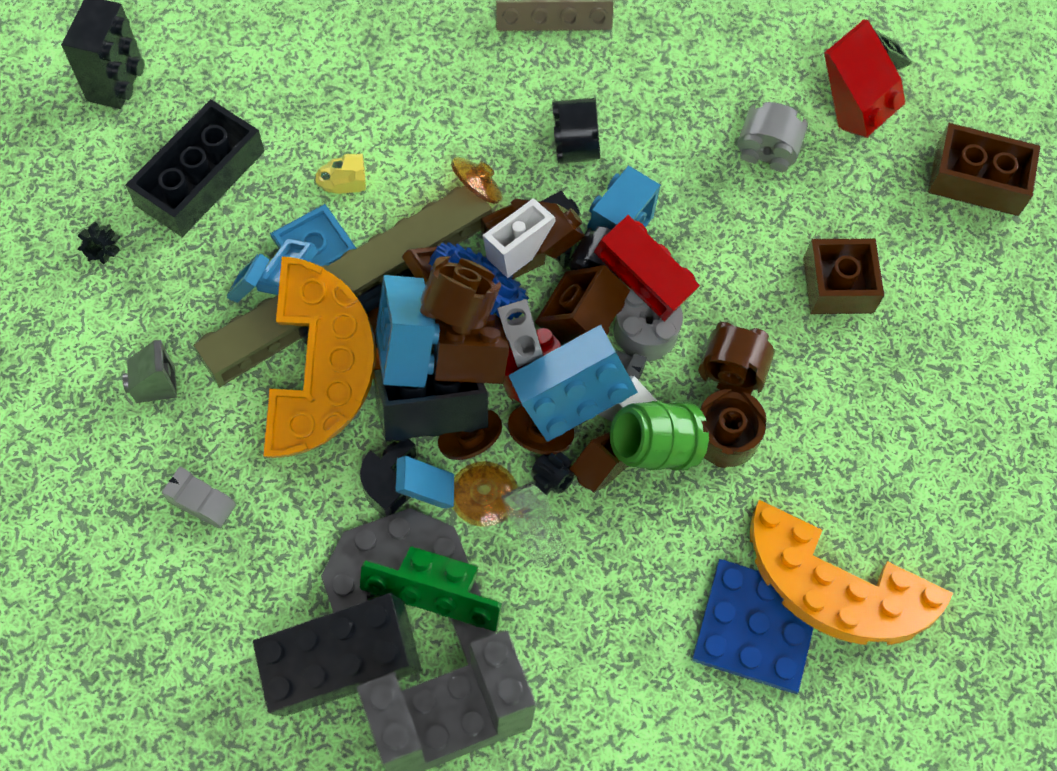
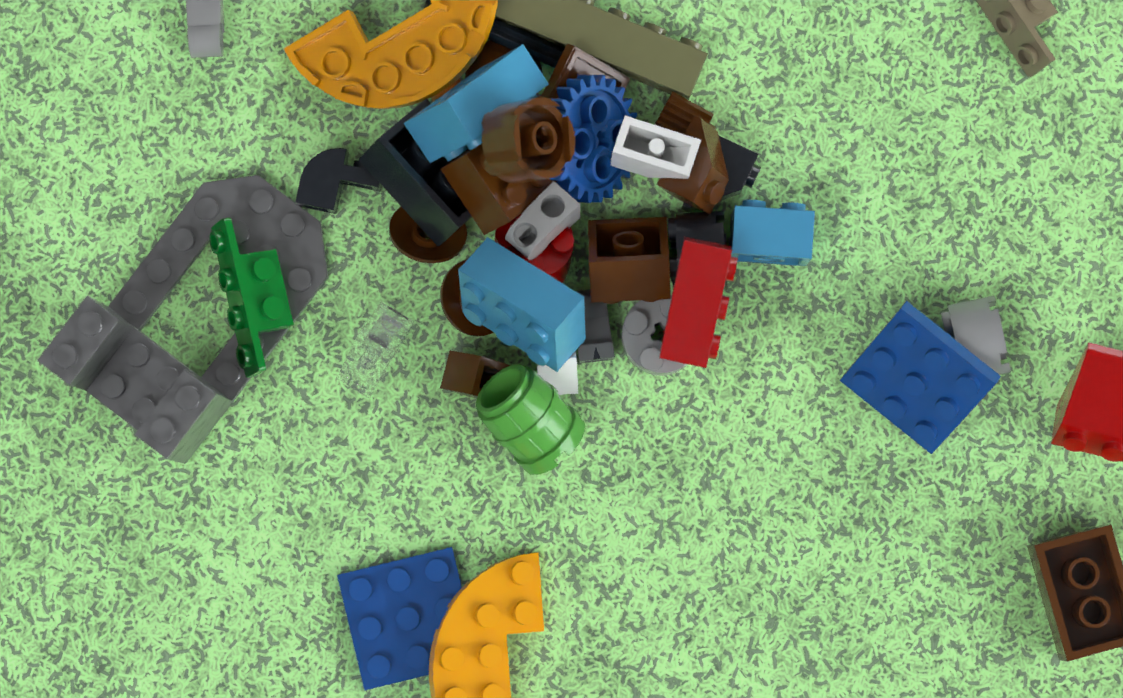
camera: 65 degrees right, 20 degrees up
(335, 655) = (131, 250): black brick -> none
(424, 482) = (347, 221): dark azure tile -> none
(477, 179) = (718, 57): clear orange dish -> none
(482, 508) = (379, 258): clear orange dish -> none
(553, 473) = (436, 337): black gear -> none
(576, 130) = (847, 125): black brick -> none
(737, 358) = (670, 450): reddish brown brick -> none
(748, 423) = (612, 474): reddish brown brick -> none
(780, 178) = (920, 377): none -> blue plate
(843, 276) = (844, 506): reddish brown brick -> none

